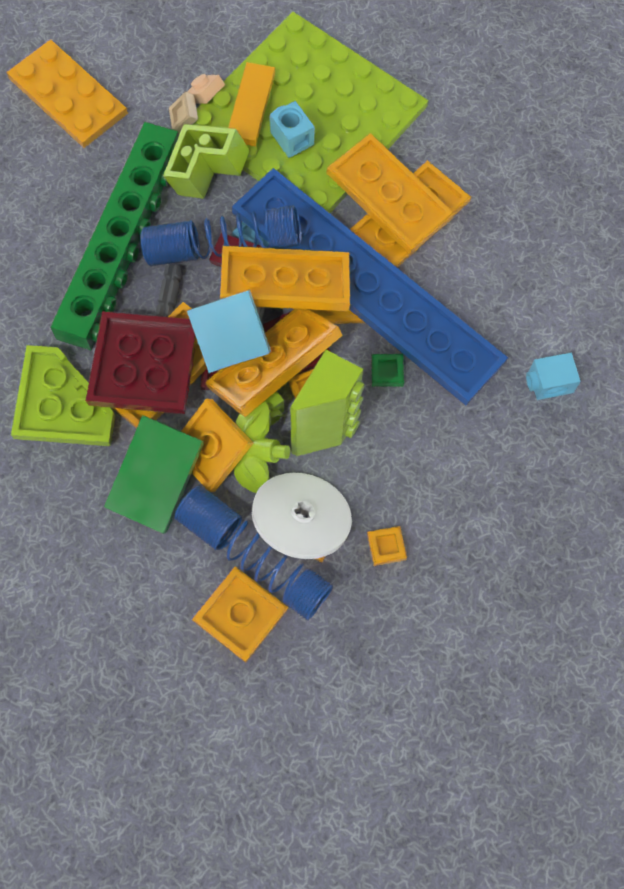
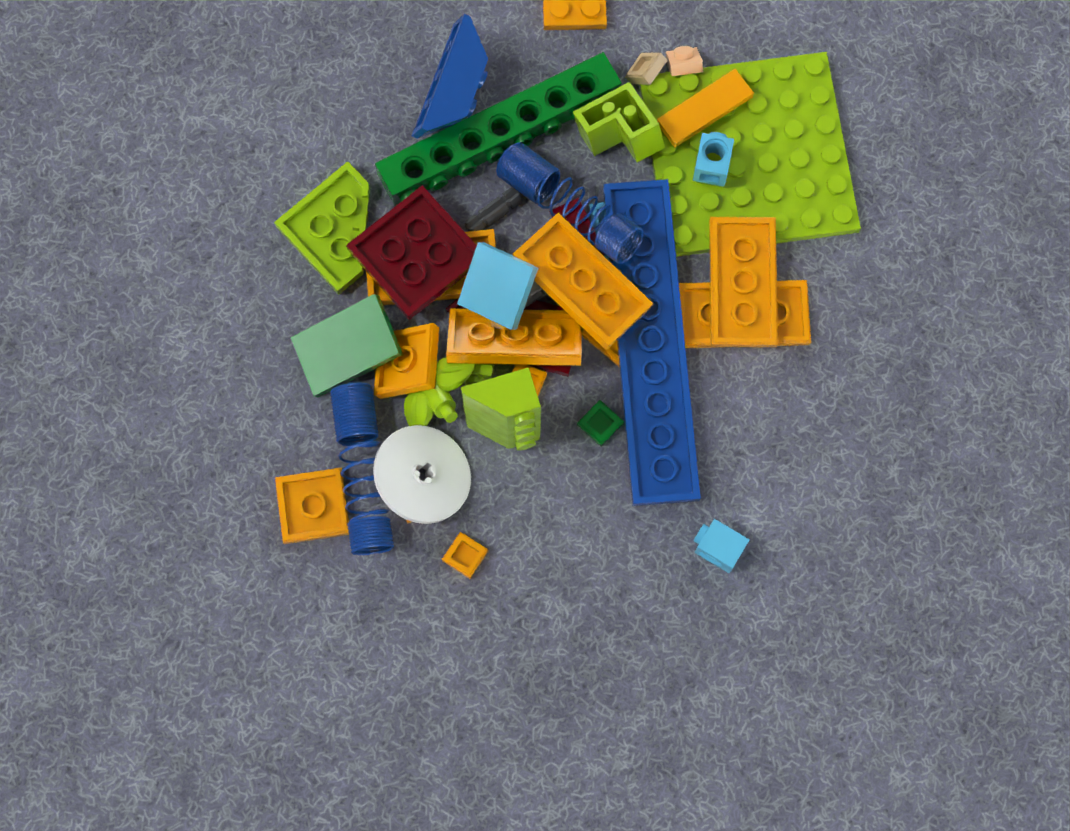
camera: 45 degrees right, 5 degrees up
(55, 220) = (455, 80): none -> blue wedge

